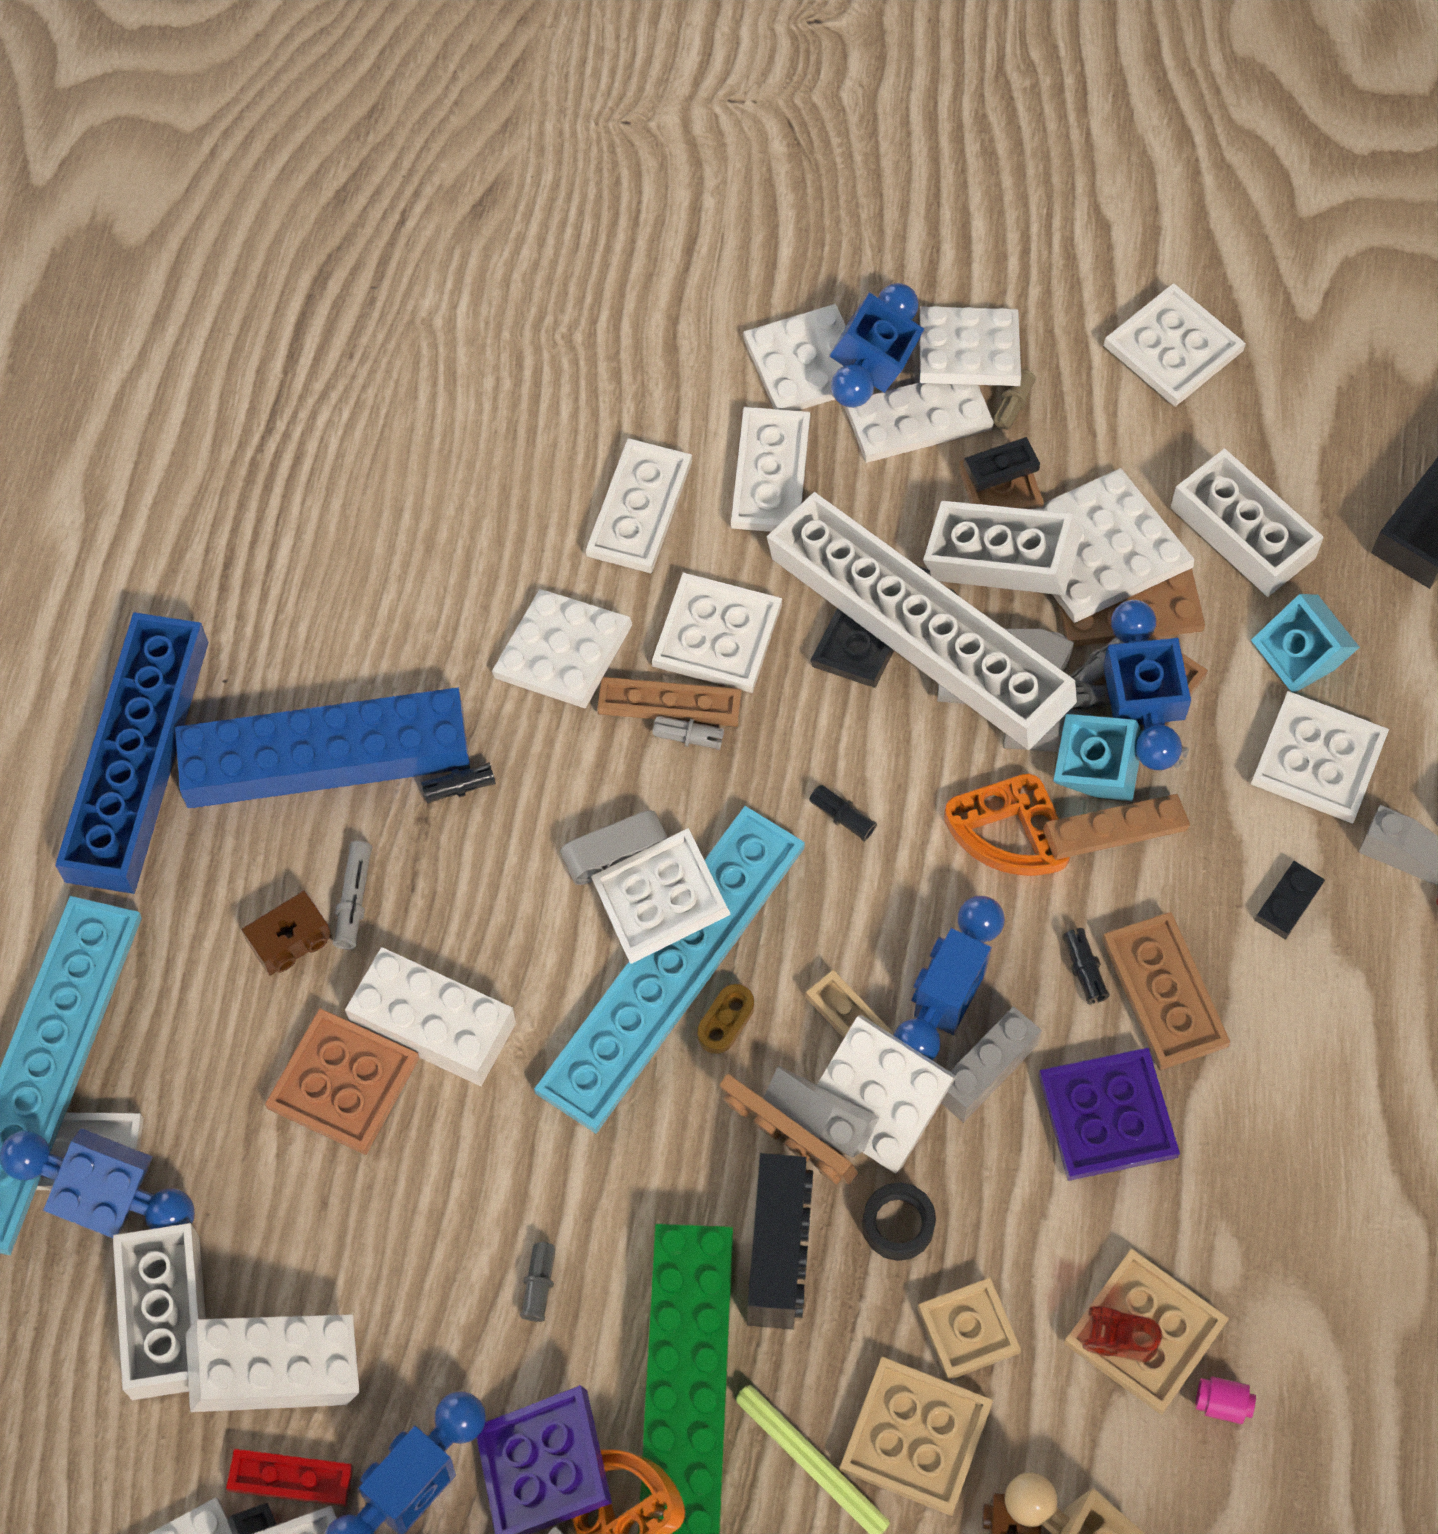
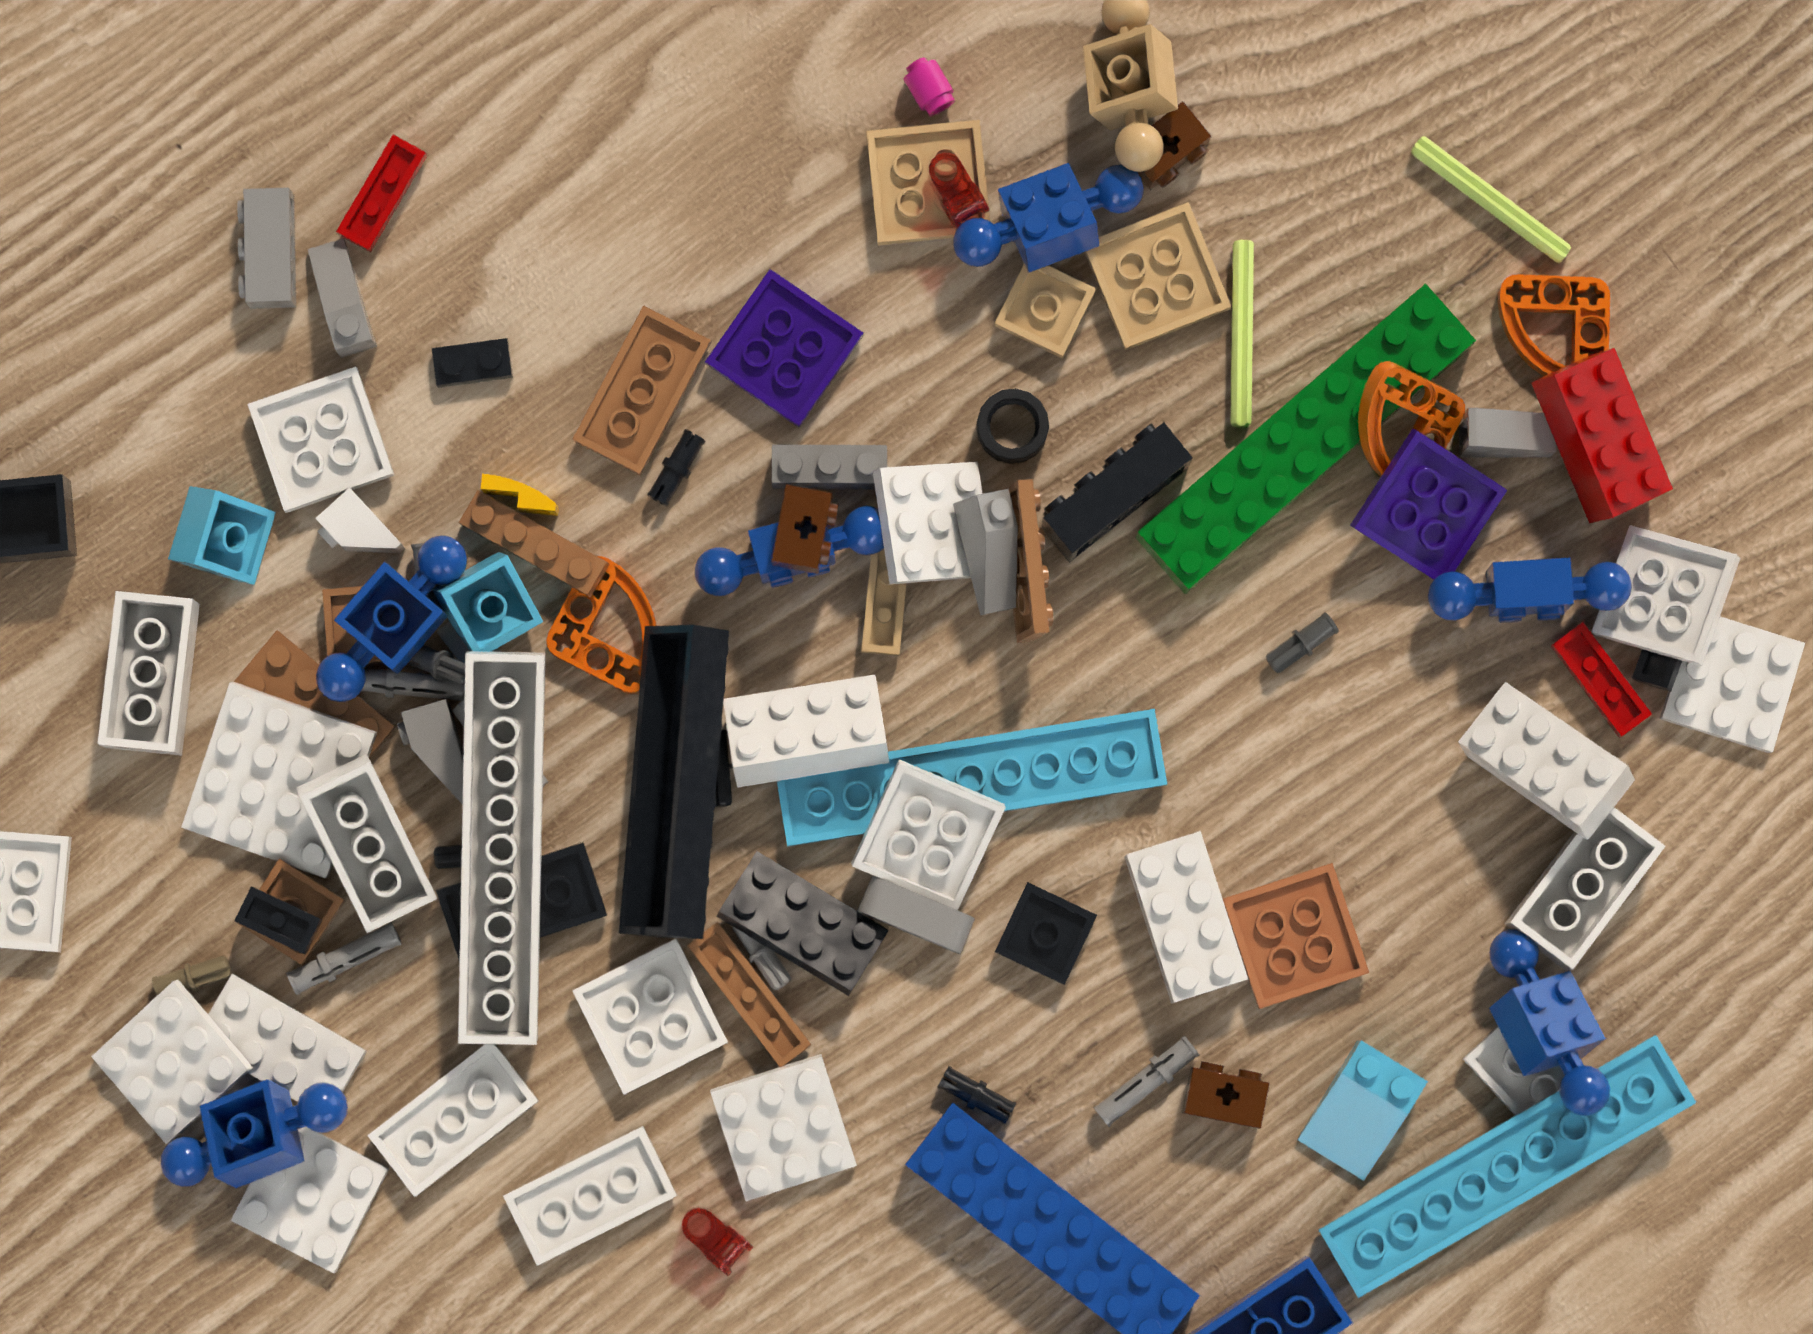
camera: 135 degrees left, 20 degrees up
(183, 1019) = (1362, 1109): none -> medium azure slope
(517, 919) = (1045, 933): none -> black plate
(535, 551) = (717, 1240): none -> clear red piece
(683, 770) = (802, 923): none -> plate
(724, 1020) = (973, 692): pearl gold plate -> none
(811, 880) = (806, 731): none -> white brick
(859, 766) = (674, 781): none -> black piece
(942, 479) = (344, 958): none -> light grey pin
(953, 957) = (797, 507): none -> reddish brown brick
(1037, 1386) = (1048, 217): none -> blue brick
(1155, 849) = (529, 499): none -> yellow slope
(1233, 728) = (355, 527): none -> white slope

